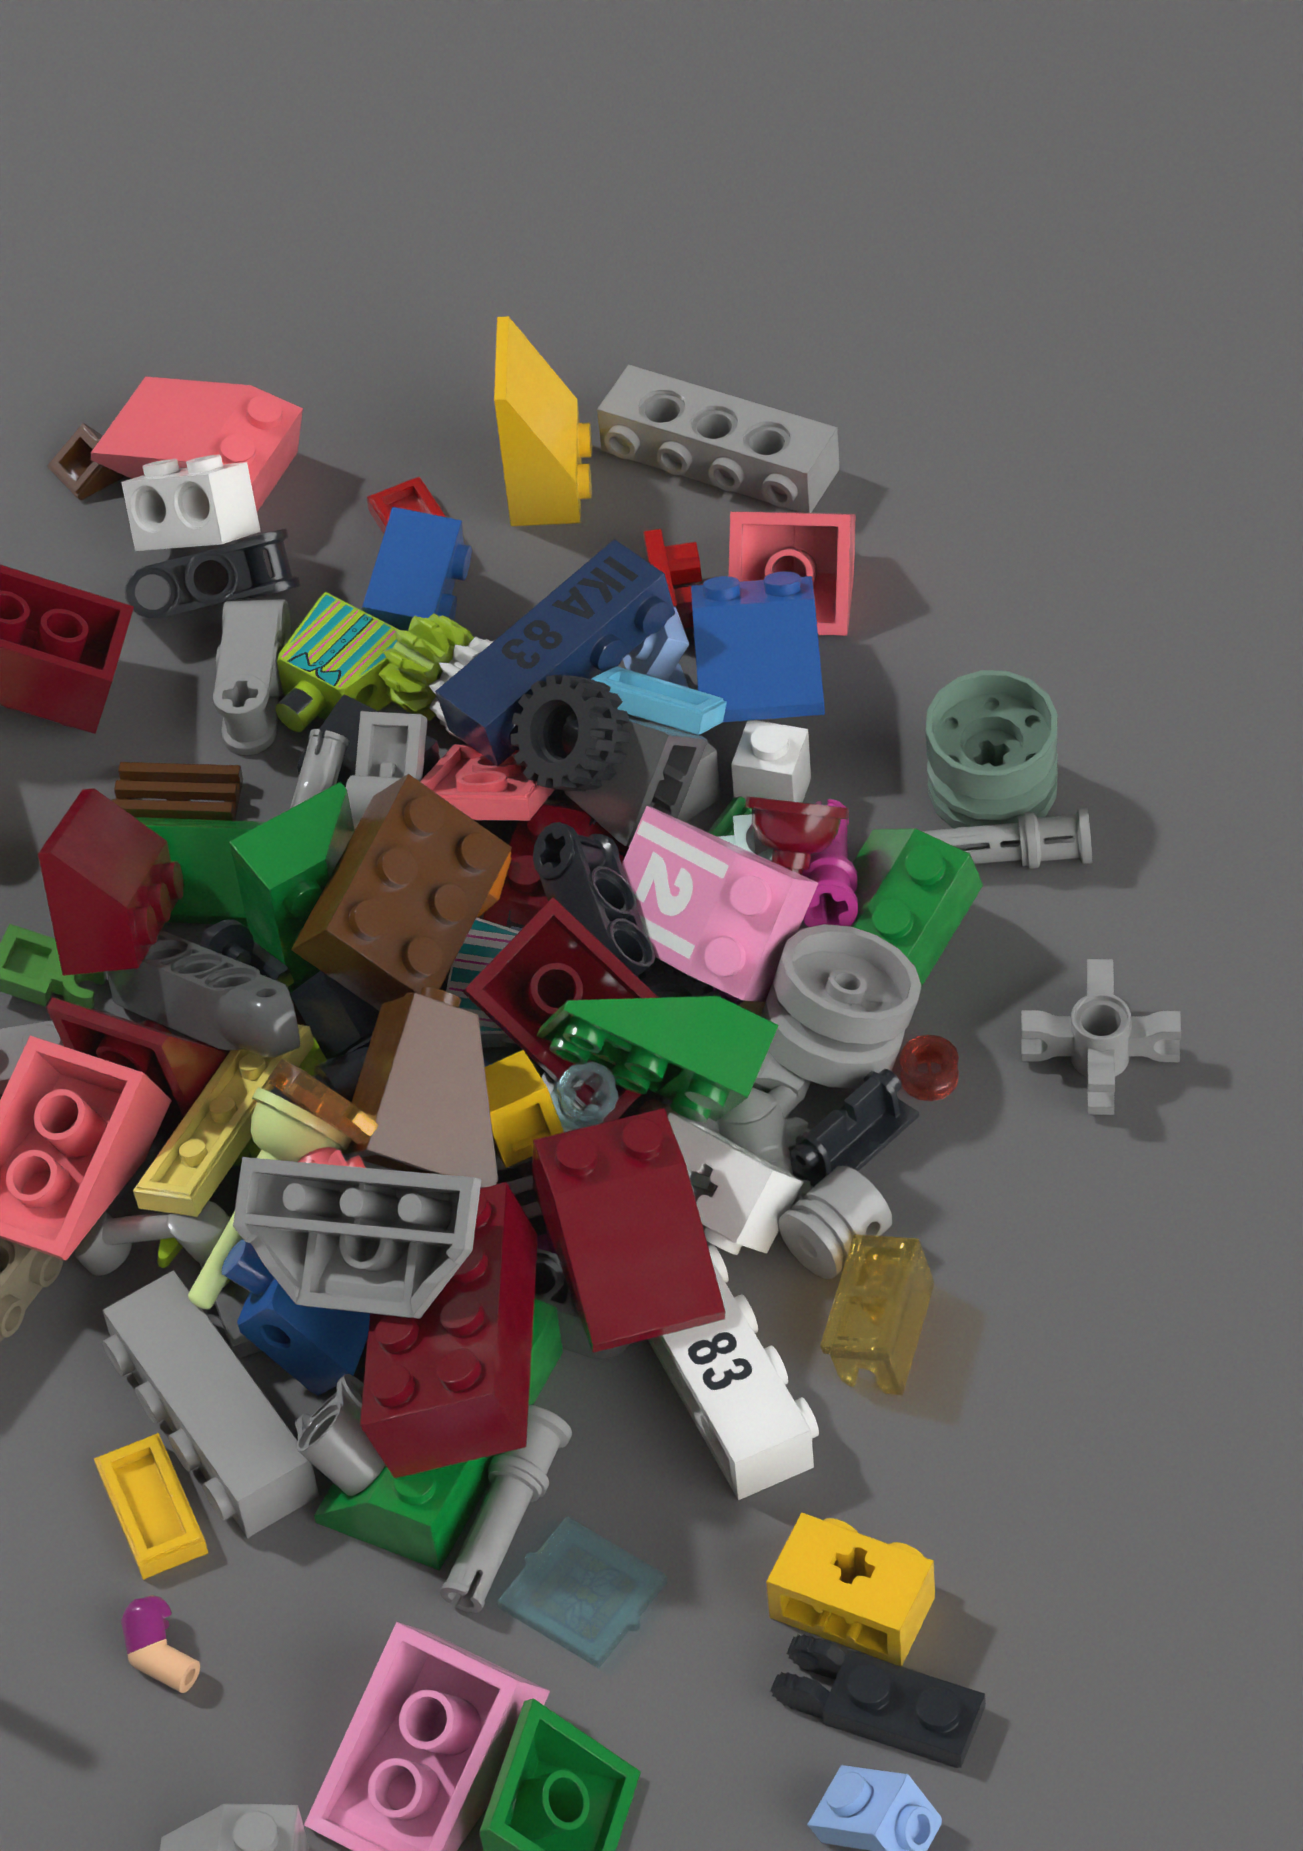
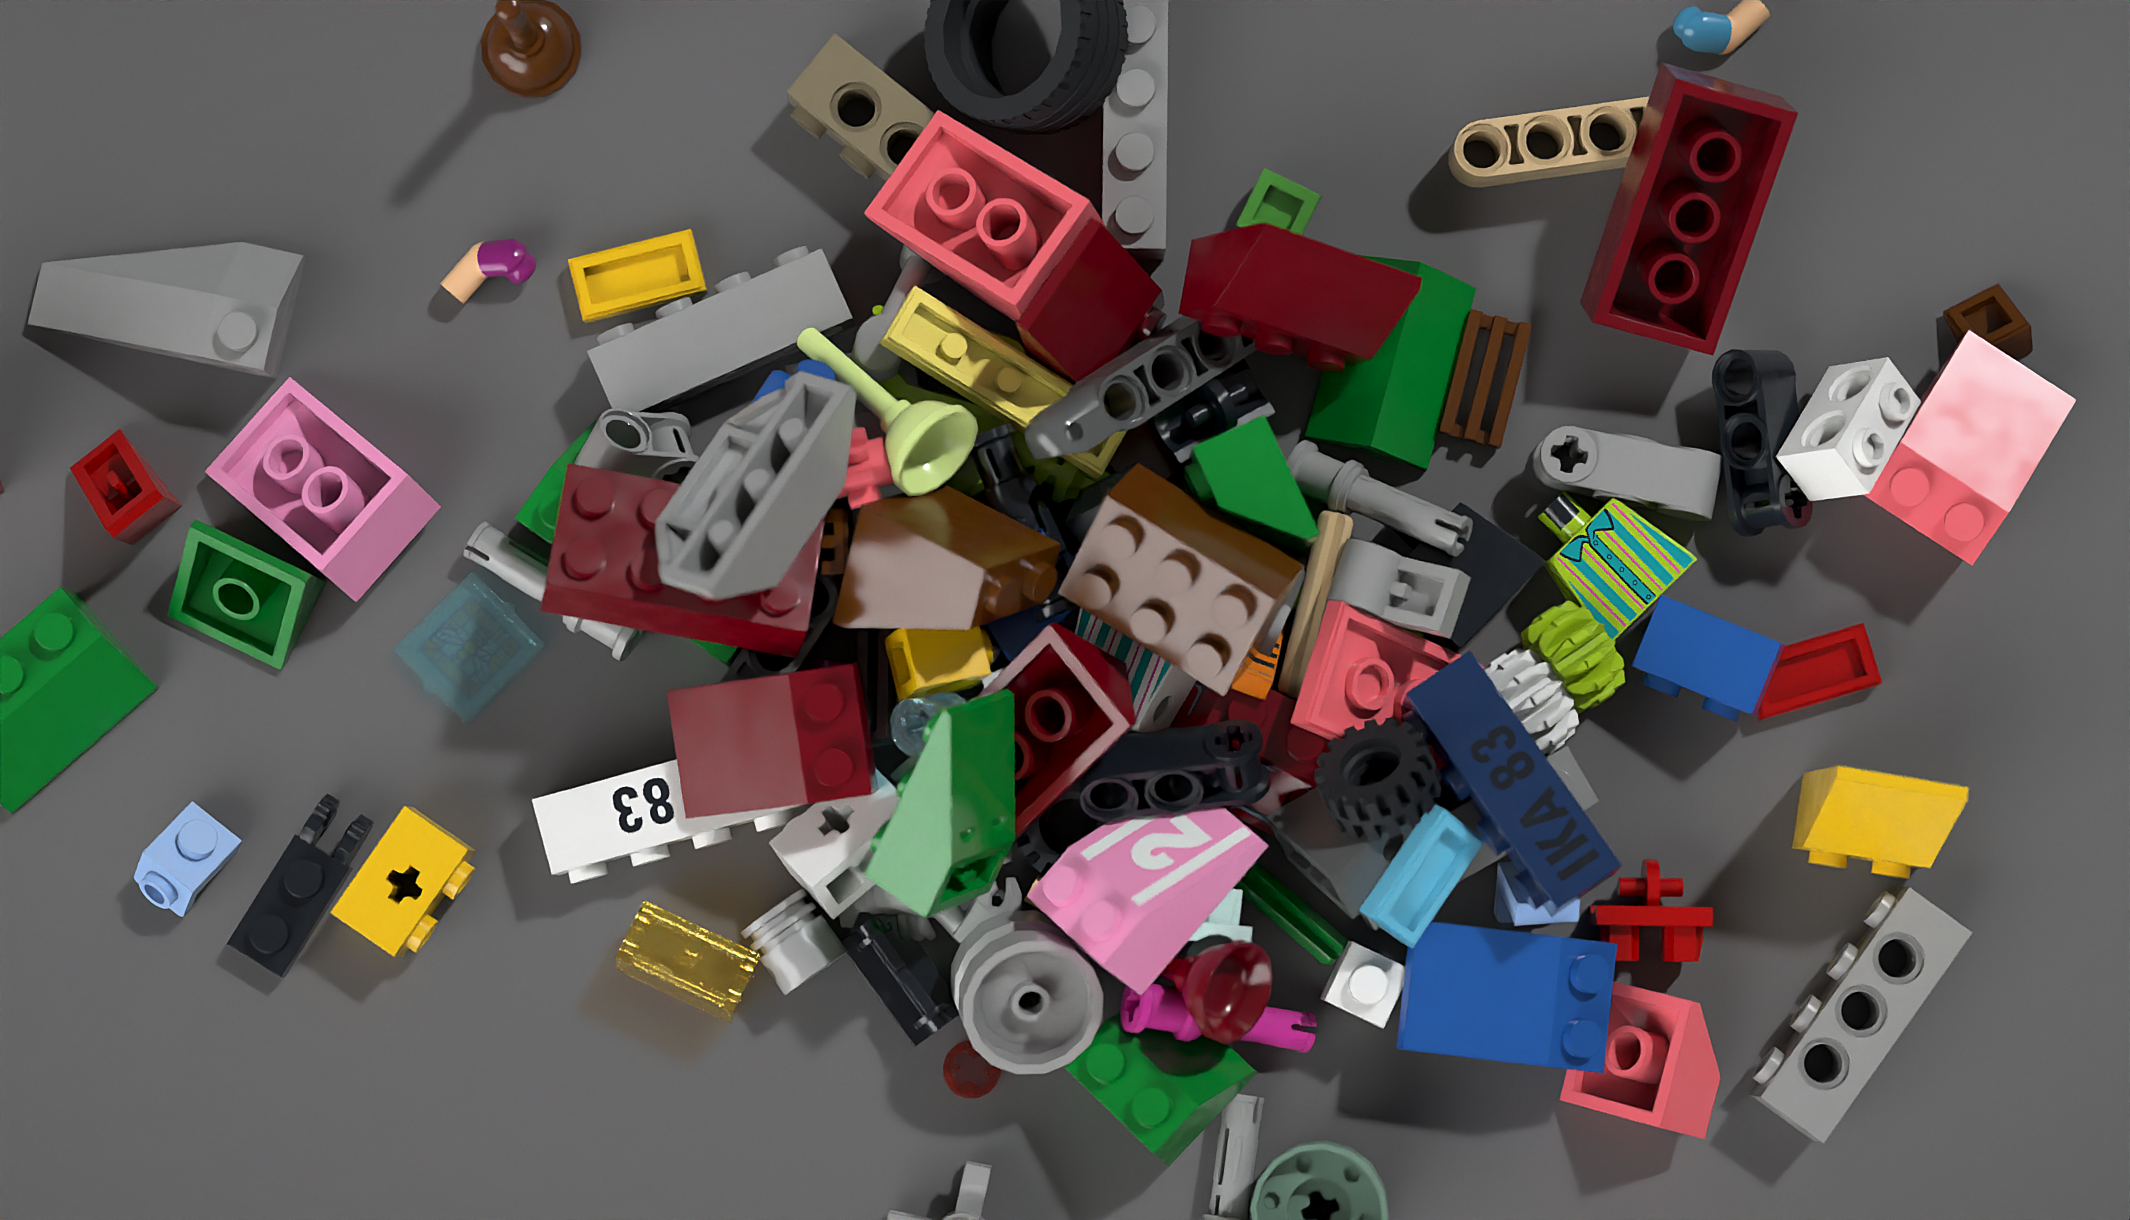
camera: 90 degrees right, 35 degrees up
(322, 1102) = (946, 461): clear orange tile -> none

